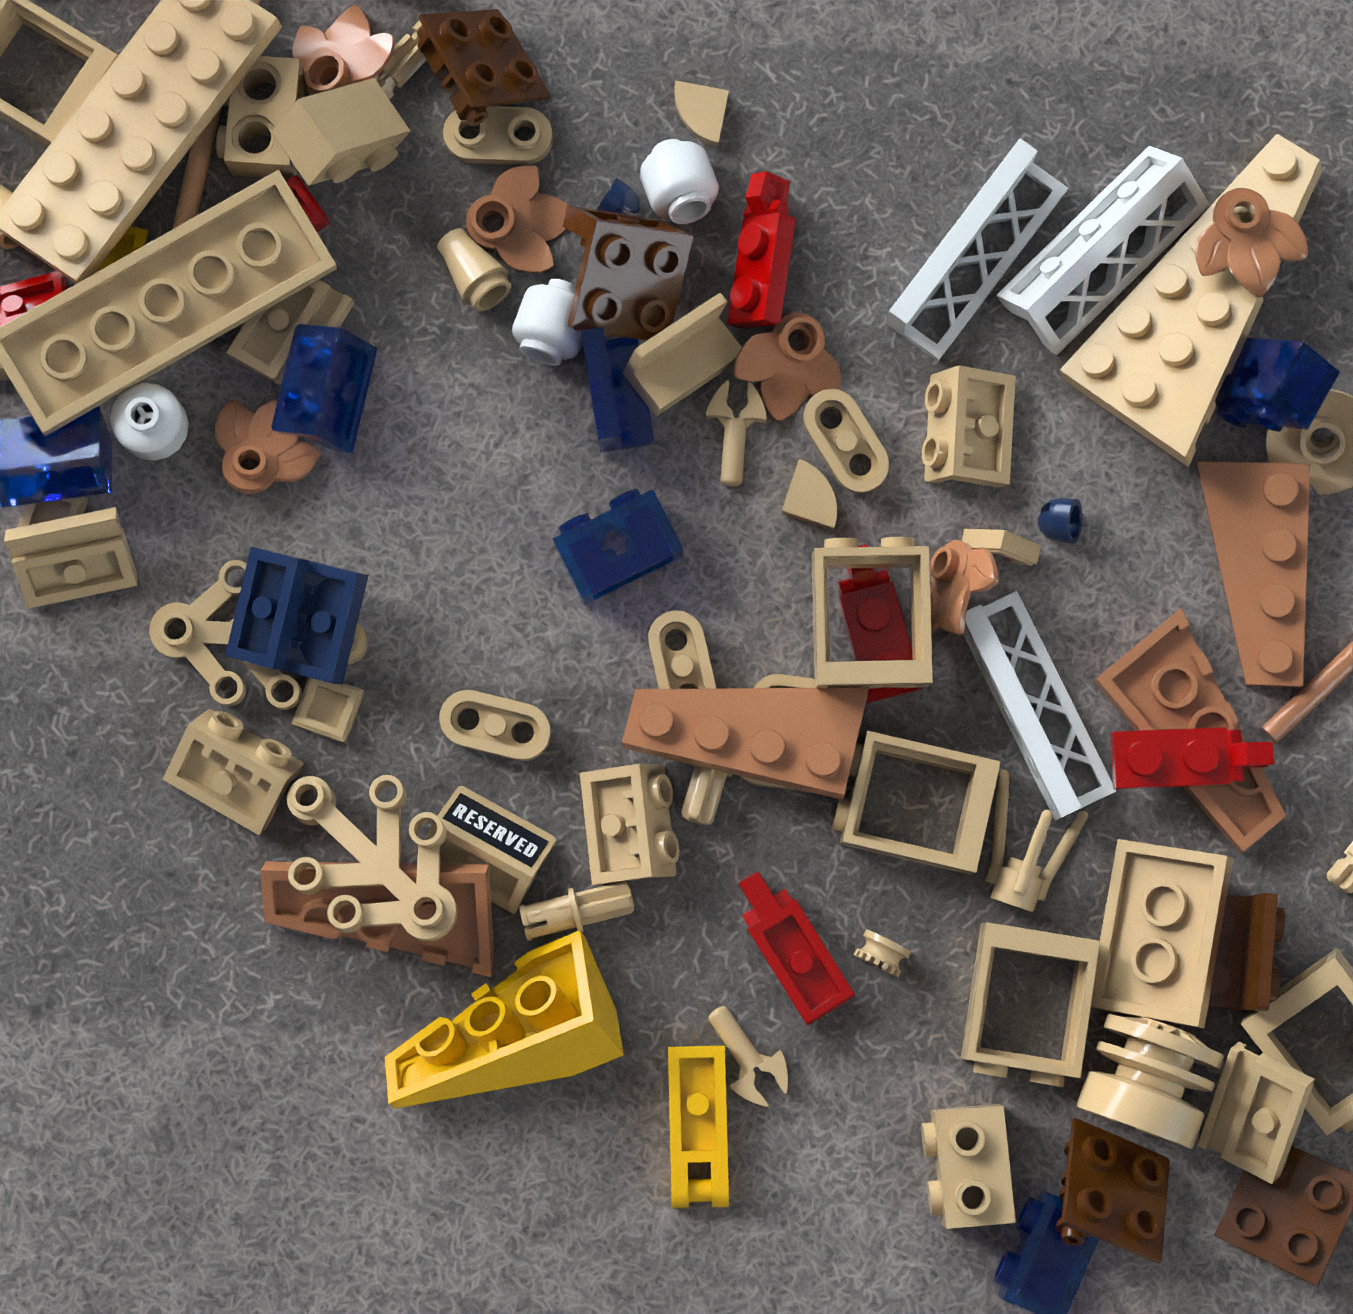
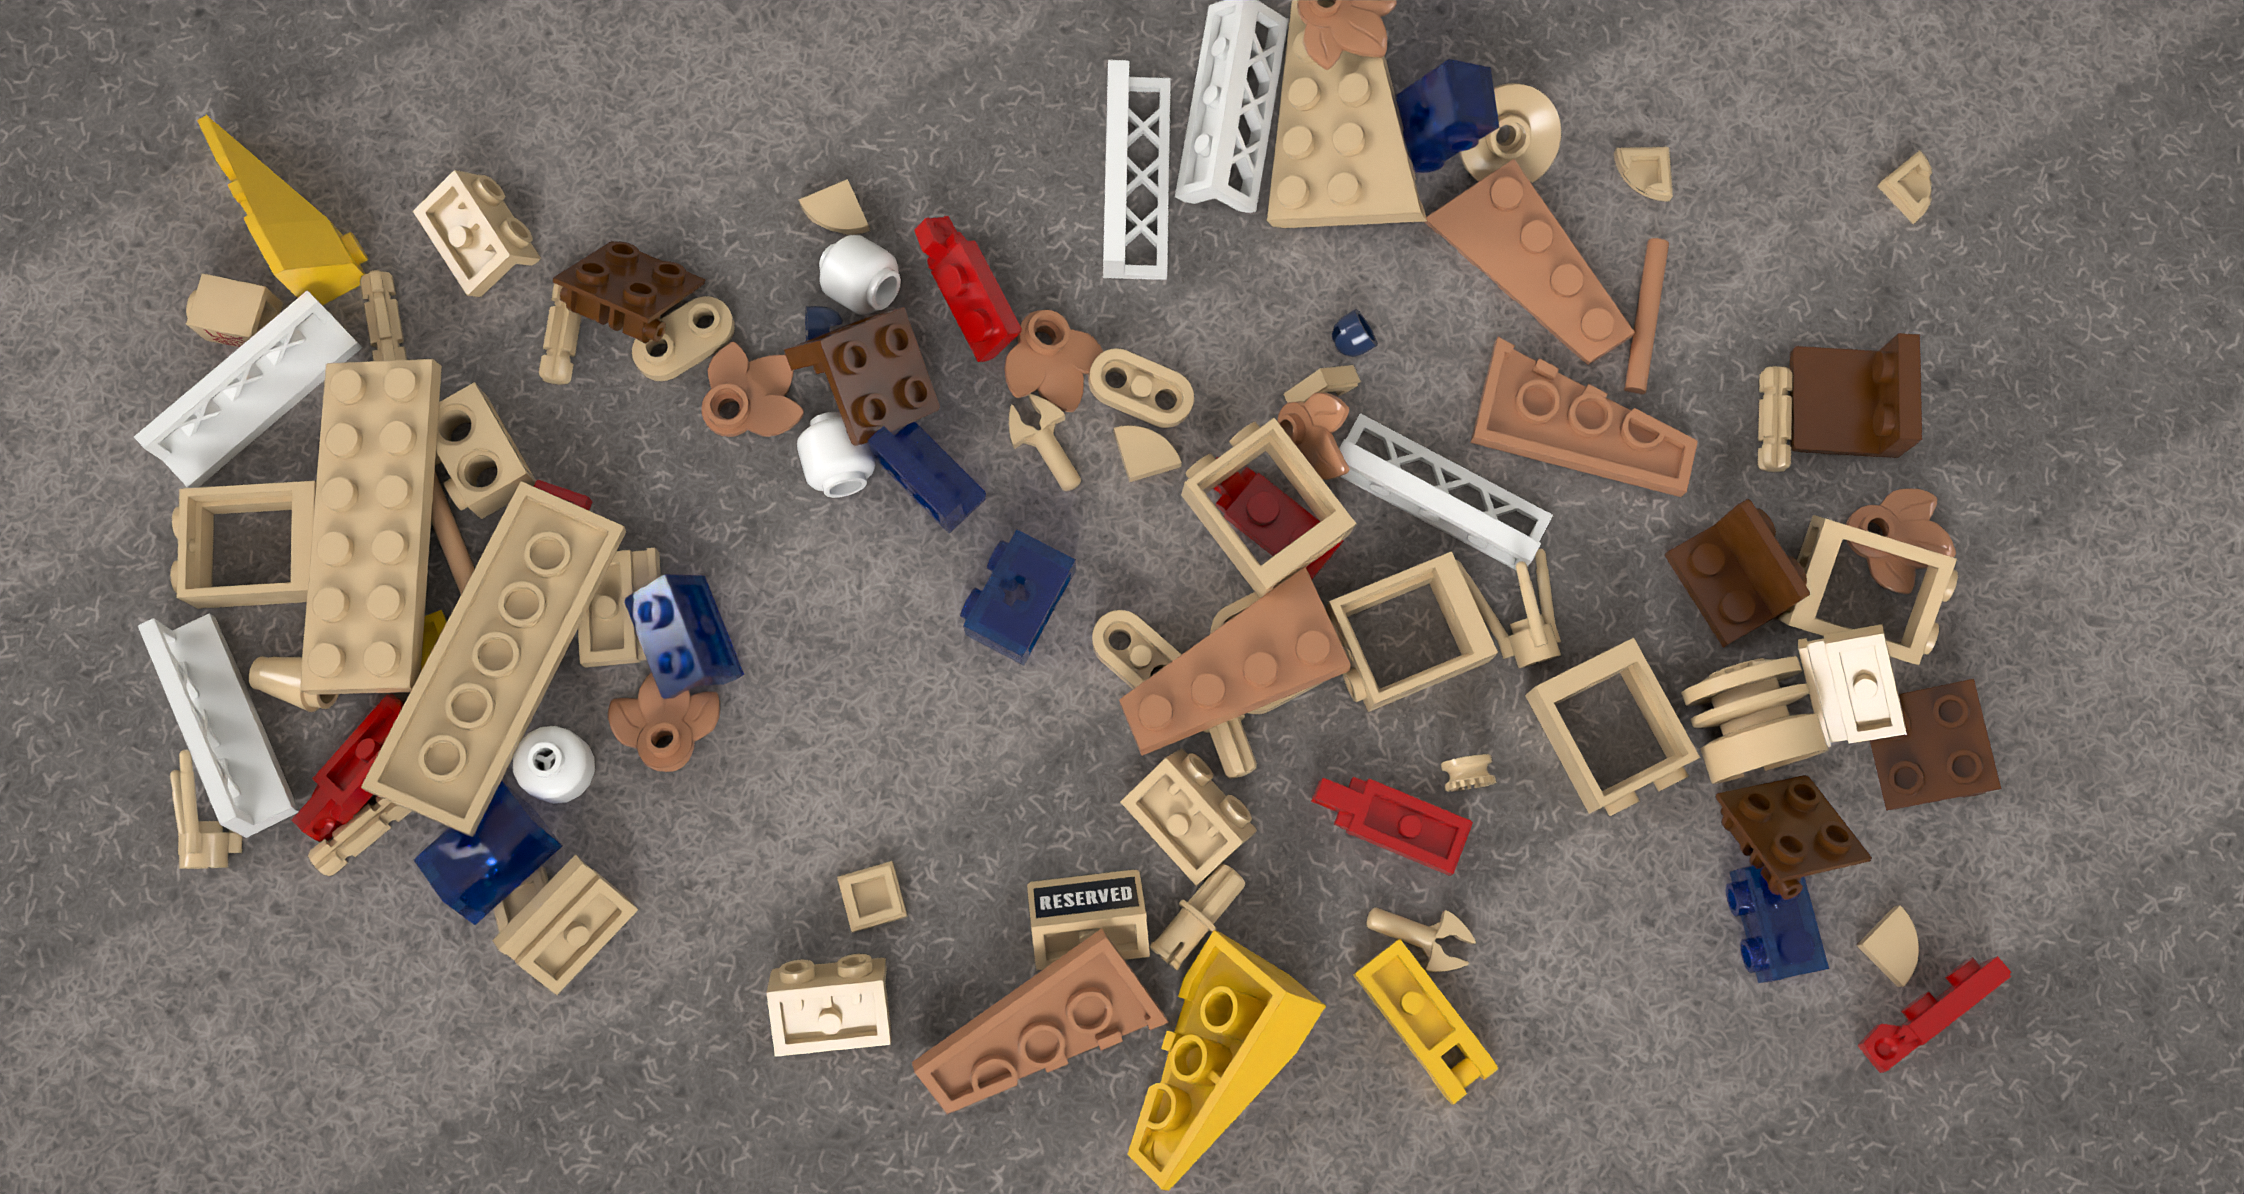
camera: 40 degrees left, 5 degrees down
(203, 632) = (761, 883): tan plant -> none
(296, 615) = (793, 837): dark blue slope -> none
(341, 132) = (552, 417): tan brick -> none
(342, 51) = (506, 356): nougat plate -> none
(378, 864) = (1011, 994): tan plant -> none
(474, 271) = (743, 458): tan cone -> none
(496, 725) = (1021, 808): tan plate -> none
(682, 357) = (963, 410): tan panel -> none
(969, 426) = (1229, 311): tan bracket -> none
(970, 1166) = (1664, 893): tan brick -> none
(1161, 932) = (1673, 597): tan plate -> none
(1184, 757) = (1588, 449): red hinge -> none

